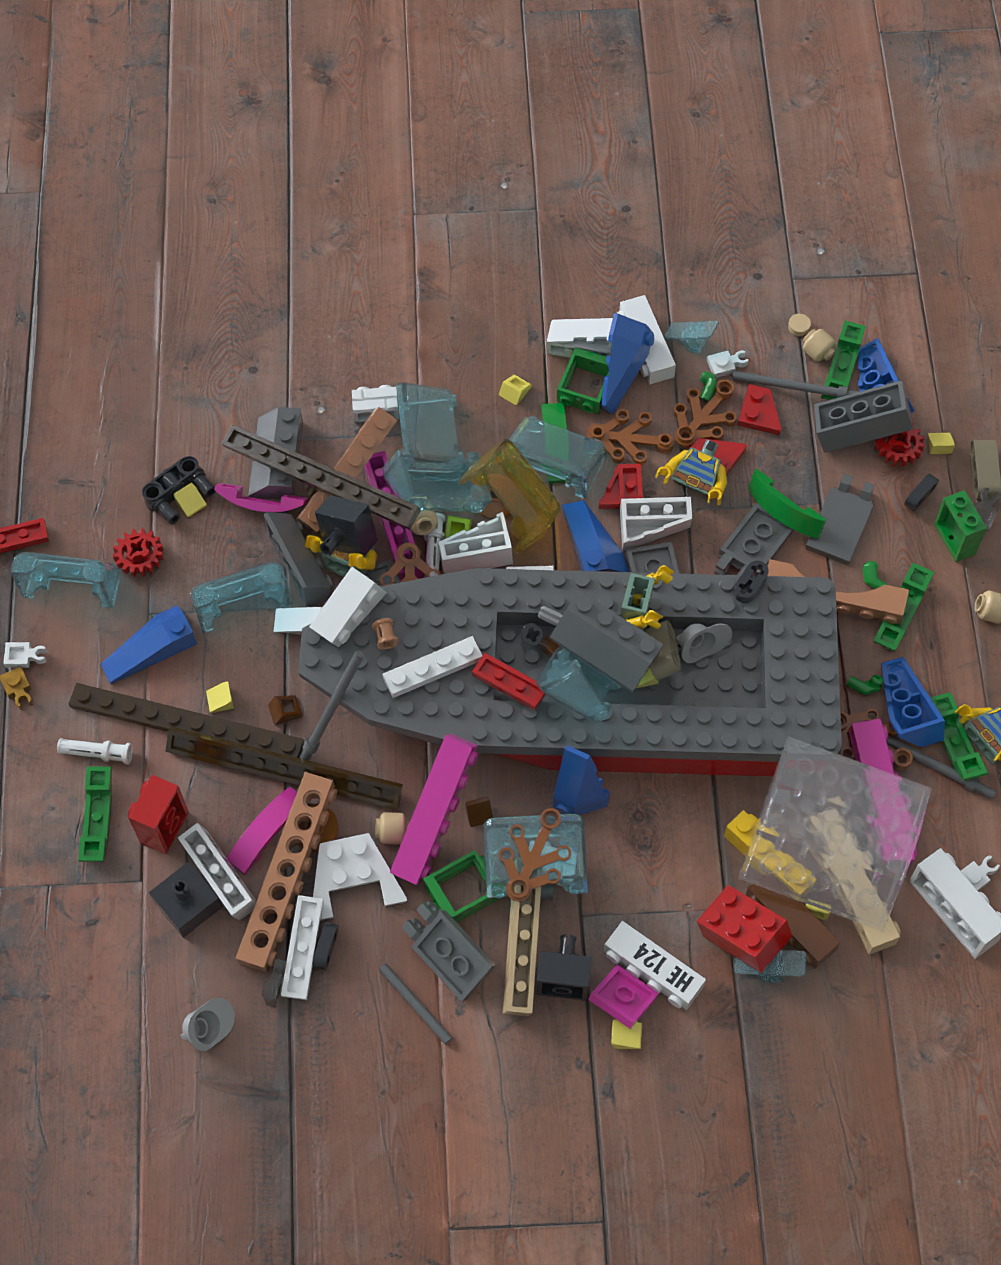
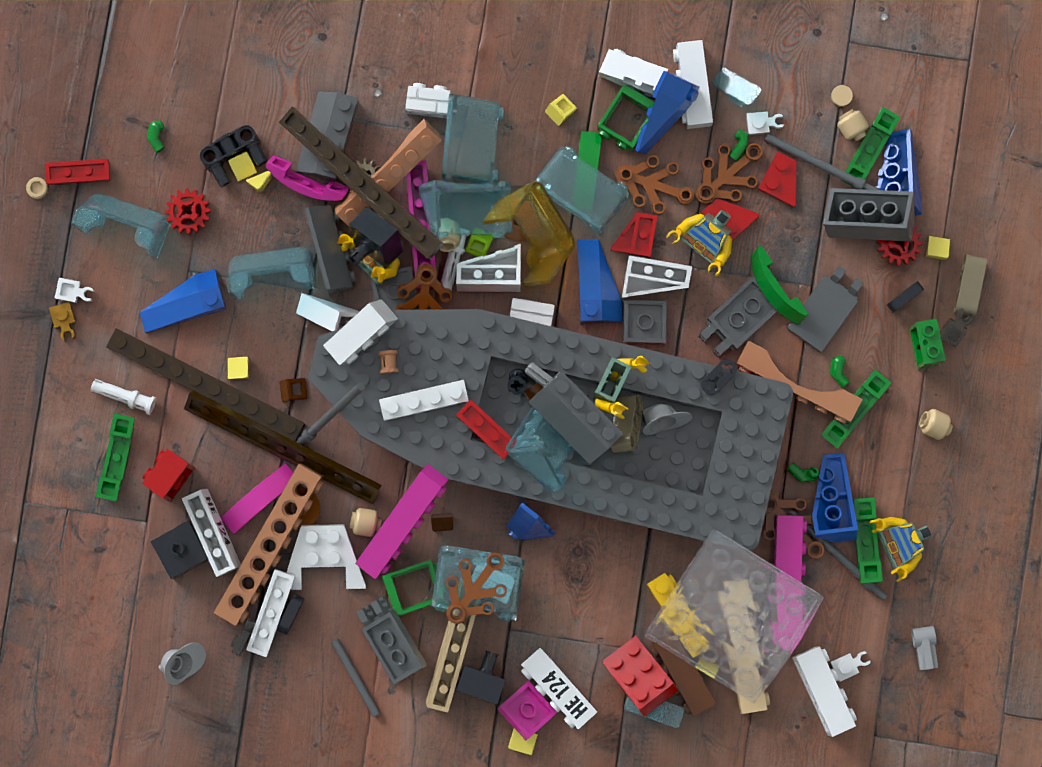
camera: 10 degrees right, 20 degrees up
(89, 489) = (153, 135): none -> green arm
(211, 509) = (260, 181): none -> light yellow slope

